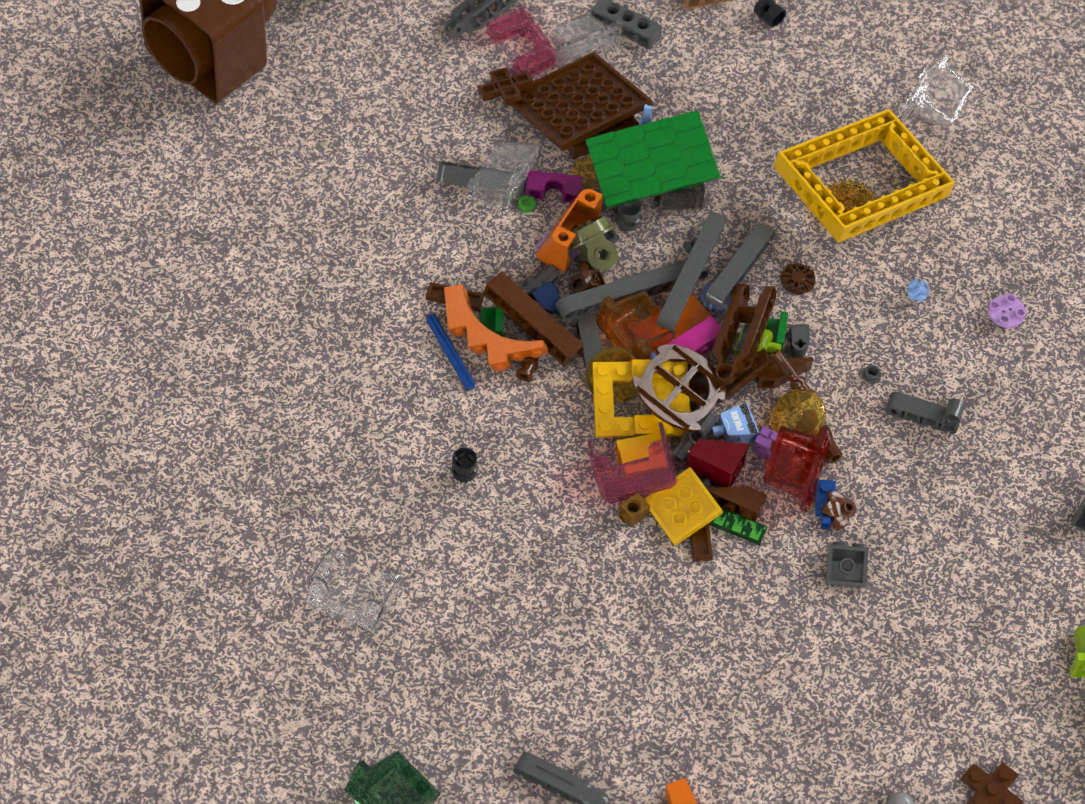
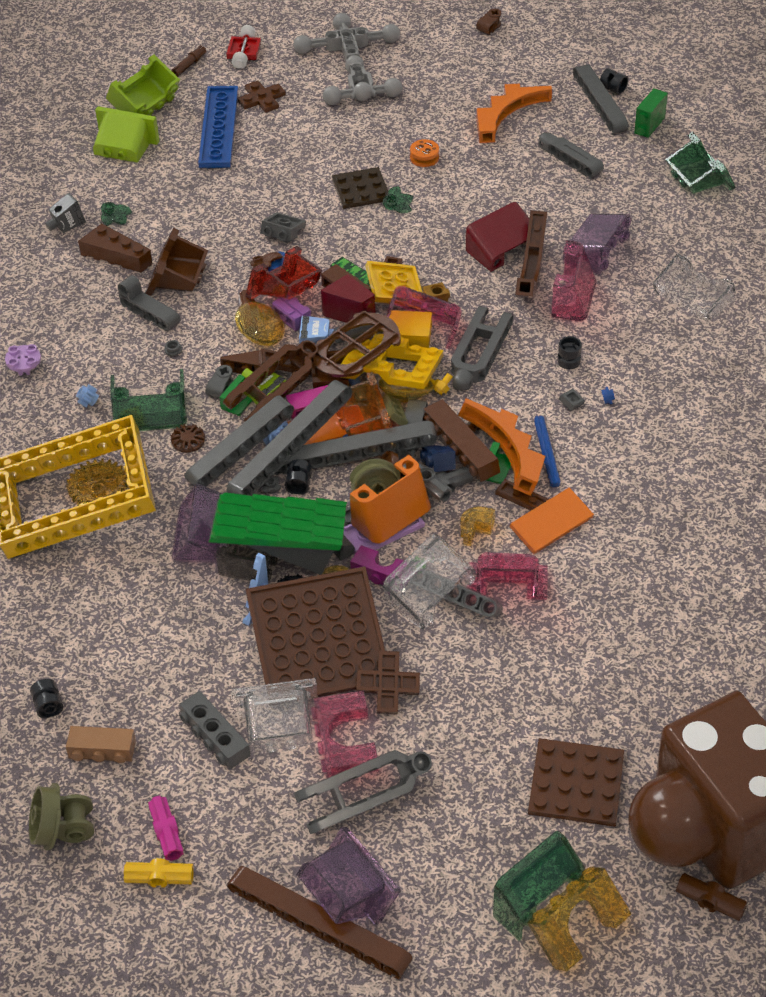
camera: 155 degrees left, 10 degrees down
(329, 59) = (576, 782): none -> reddish brown plate
(409, 428) = (608, 395): none -> blue plate
(421, 274) = (551, 520): none -> orange tile
(440, 201) = (511, 569): none -> clear pink windscreen
(445, 415) = (571, 399): none -> dark grey tile
(481, 573) = (574, 299): none -> clear pink windscreen
(482, 635) = (599, 235): none -> clear purple windscreen
(489, 254) = (478, 520): none -> clear yellow brick
(541, 561) = (528, 281): none -> reddish brown arch
(555, 267) = (434, 485): none -> dark grey piece
(561, 408) = (465, 373): none -> dark grey piece
(582, 395) = (441, 386): none -> yellow piece
(589, 610) = (497, 234): none -> dark red windscreen
(607, 331) = (395, 410): none -> olive tile
(669, 251) = (298, 477): none -> black wheel
(736, 190) = (195, 526): none -> clear purple windscreen
(736, 648) = (399, 201): none -> clear green plate
(740, 736) = (424, 153): none -> orange head
(790, 660) = (360, 187): none -> dark brown plate
(795, 384) = (245, 344): reddish brown pin -> none
(830, 293) = (154, 410): none -> clear green windscreen
(926, 469) = (178, 265): none -> reddish brown windscreen
(1007, 479) = (115, 248): none -> reddish brown wedge
(1013, 716) = (218, 127): none -> blue plate
(1044, 539) = (114, 213): none -> clear green plate

